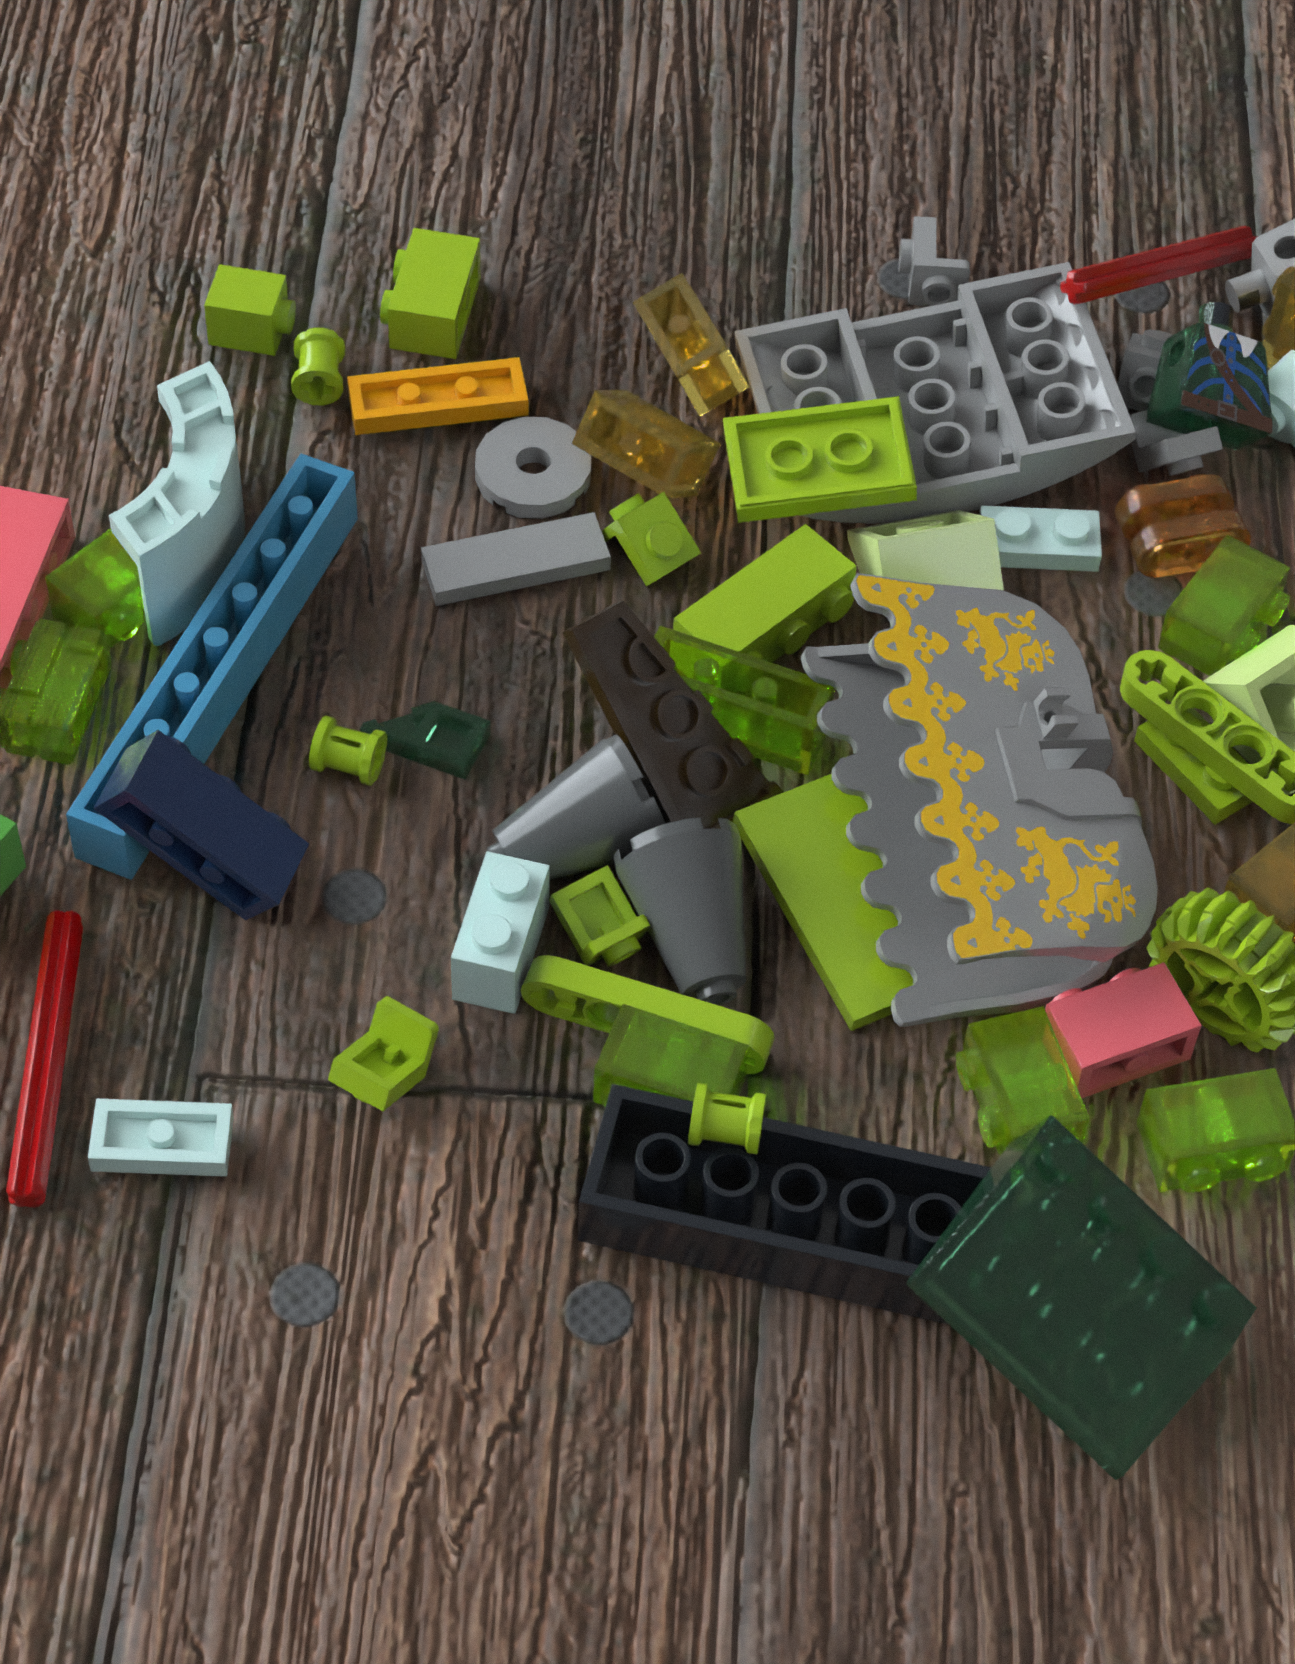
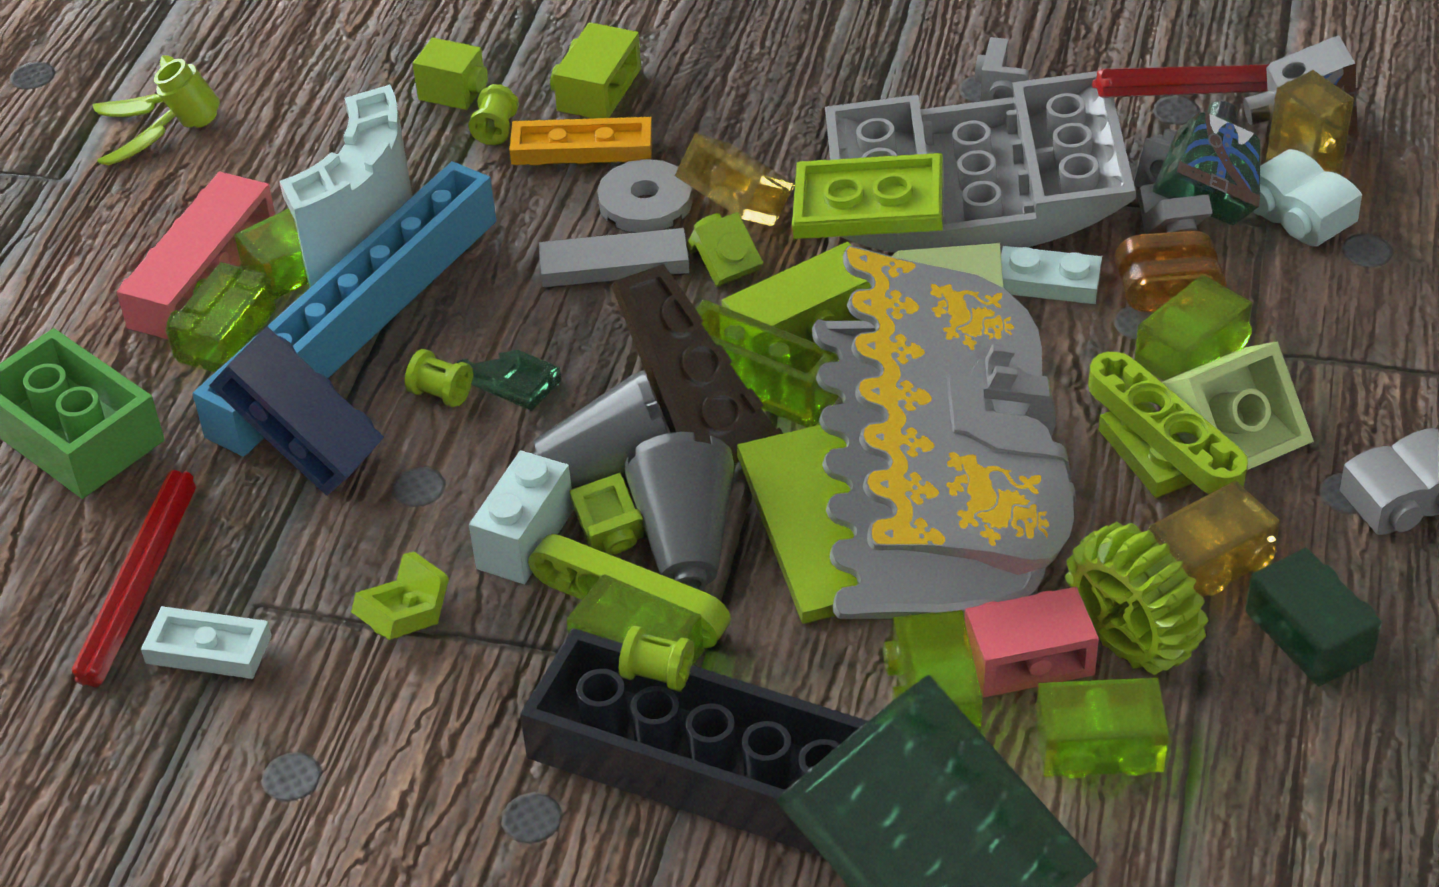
camera: 15 degrees right, 10 degrees down
(691, 344) = (788, 114): clear yellow brick -> none

